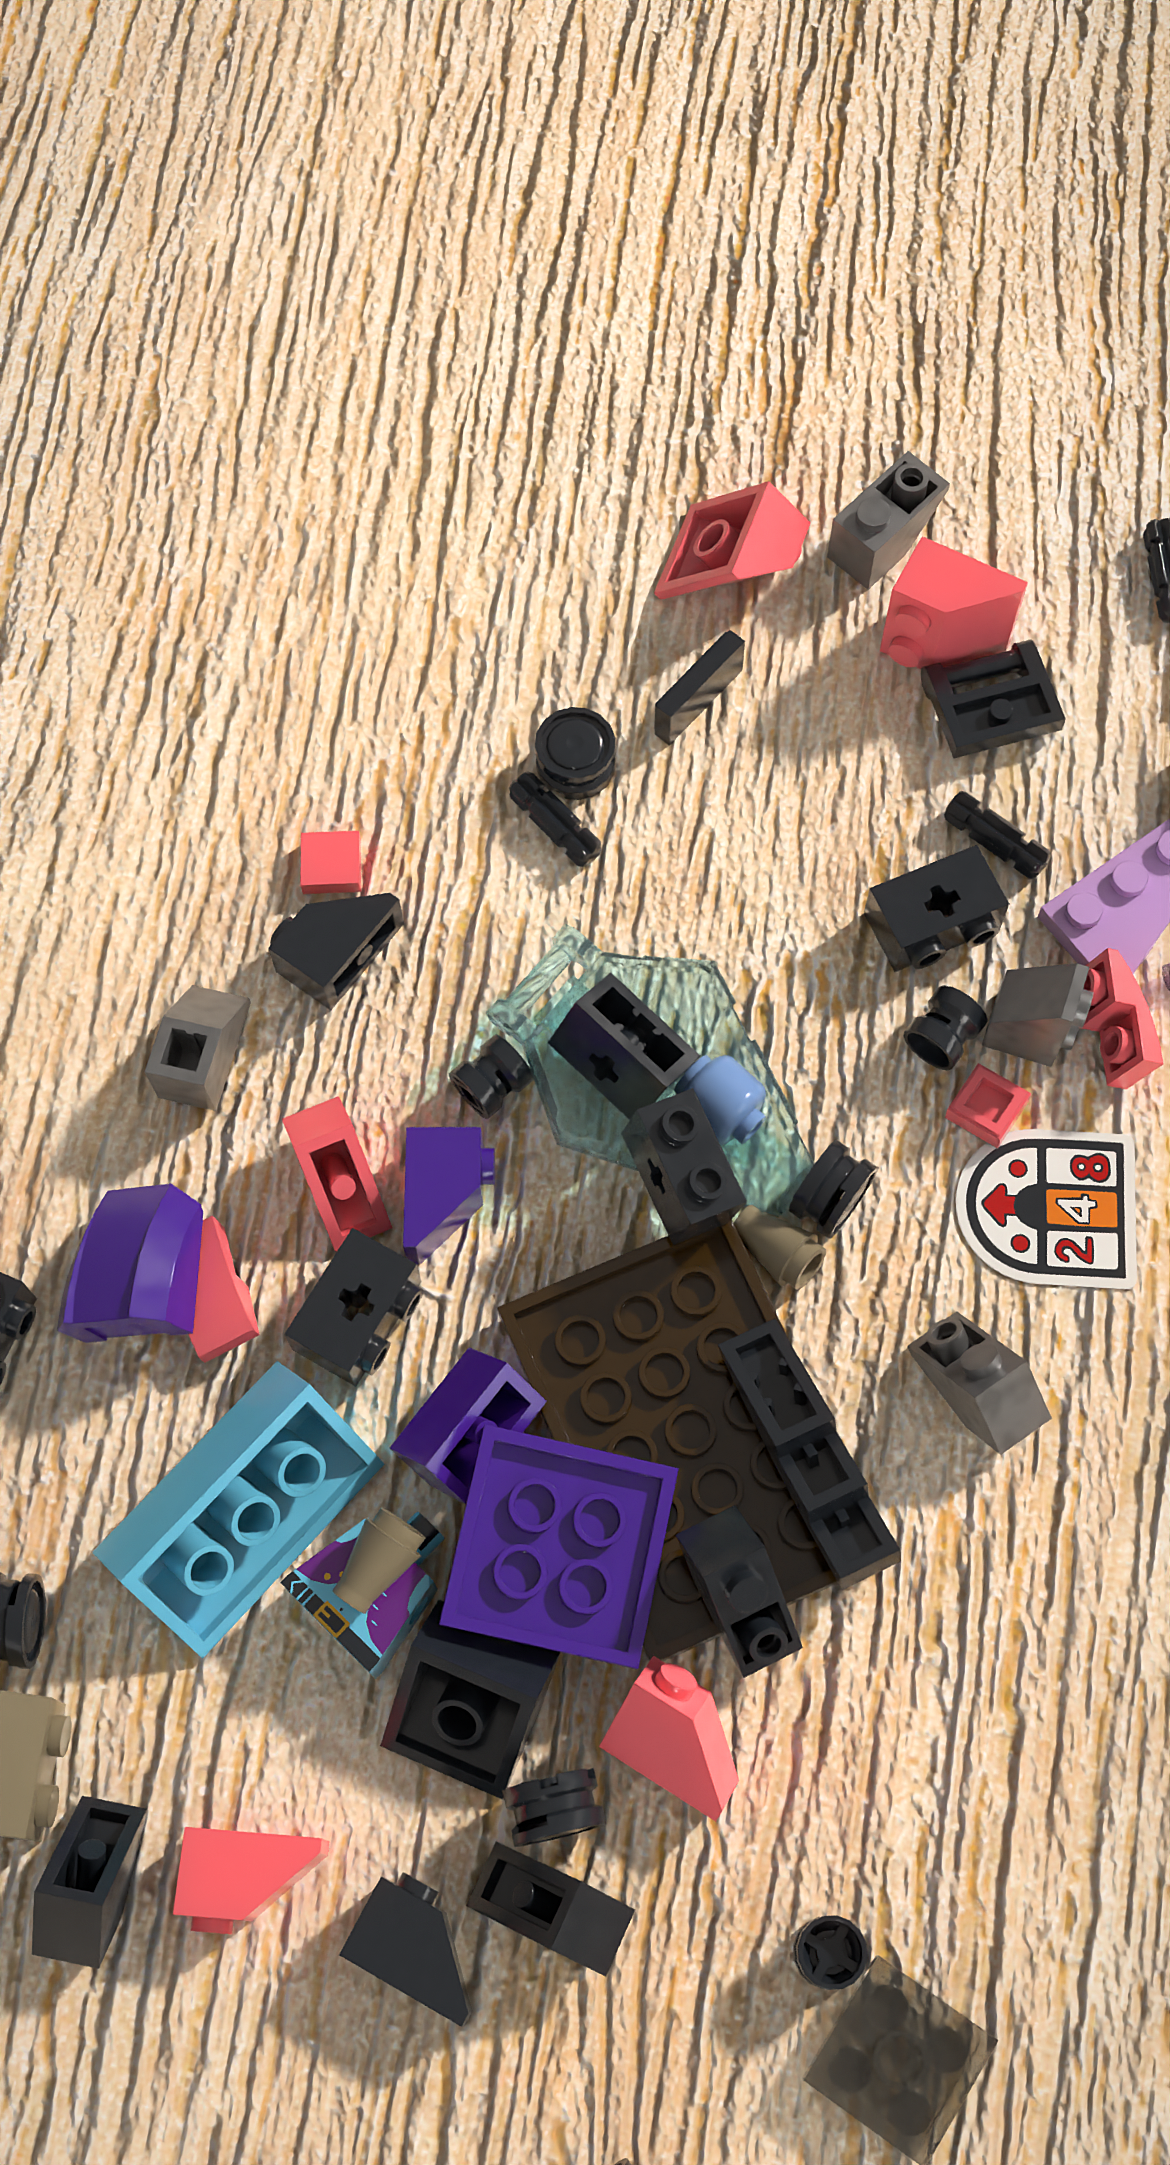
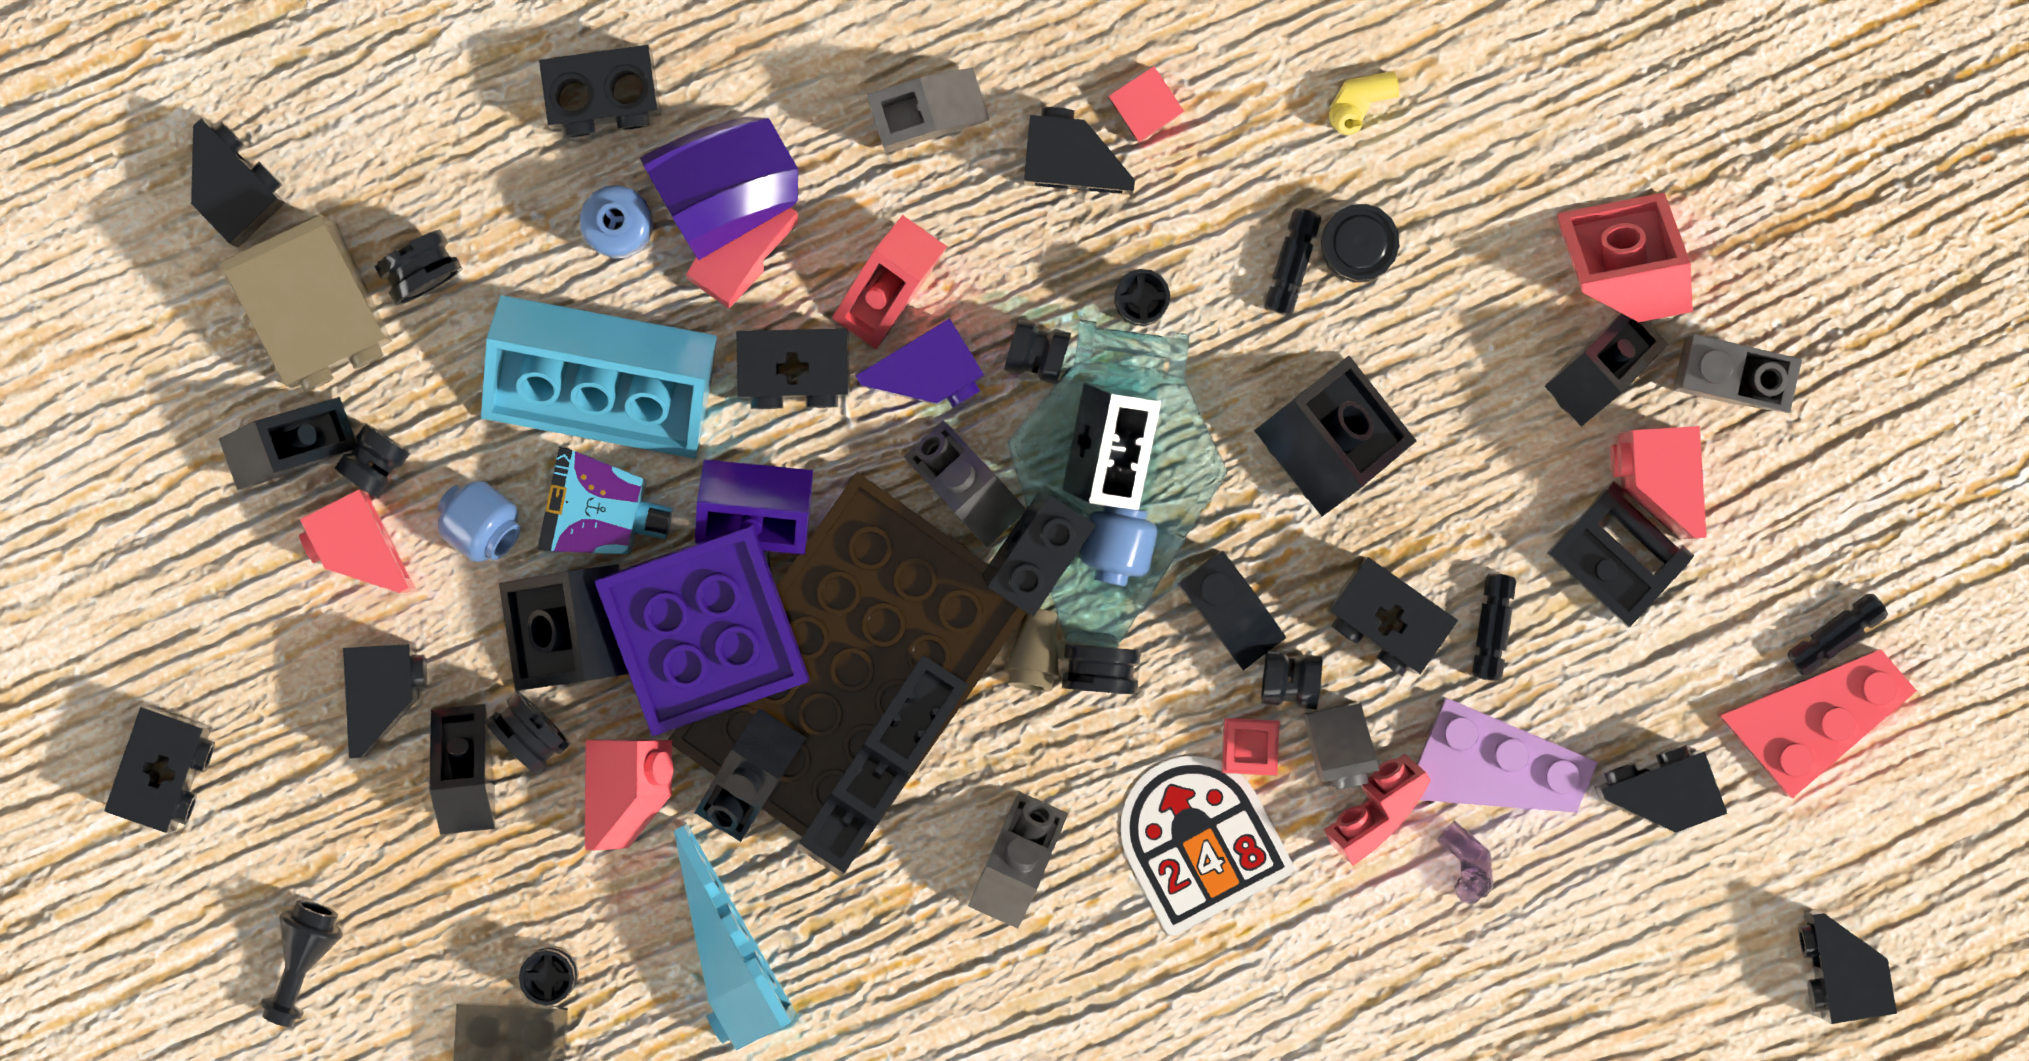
camera: 60 degrees right, 20 degrees up
(115, 1405) = (630, 236): none -> medium blue head
(167, 1797) = (379, 449): none -> black wheel
(302, 1723) = (478, 521): none -> medium blue head
(378, 1559) = (616, 509): dark tan cone -> none
(443, 686) = (1356, 97): none -> light yellow arm
(497, 945) = (1142, 289): none -> black wheel
(574, 1213) = (965, 483): none -> flat silver slope
(699, 687) = (1481, 308): black tile -> none
(739, 869) = (1335, 436): none -> black slope
(816, 620) = (1605, 367): none -> black slope
(842, 1043) = (1231, 609): none -> black slope
(952, 1742) = (736, 975): none -> medium azure wedge

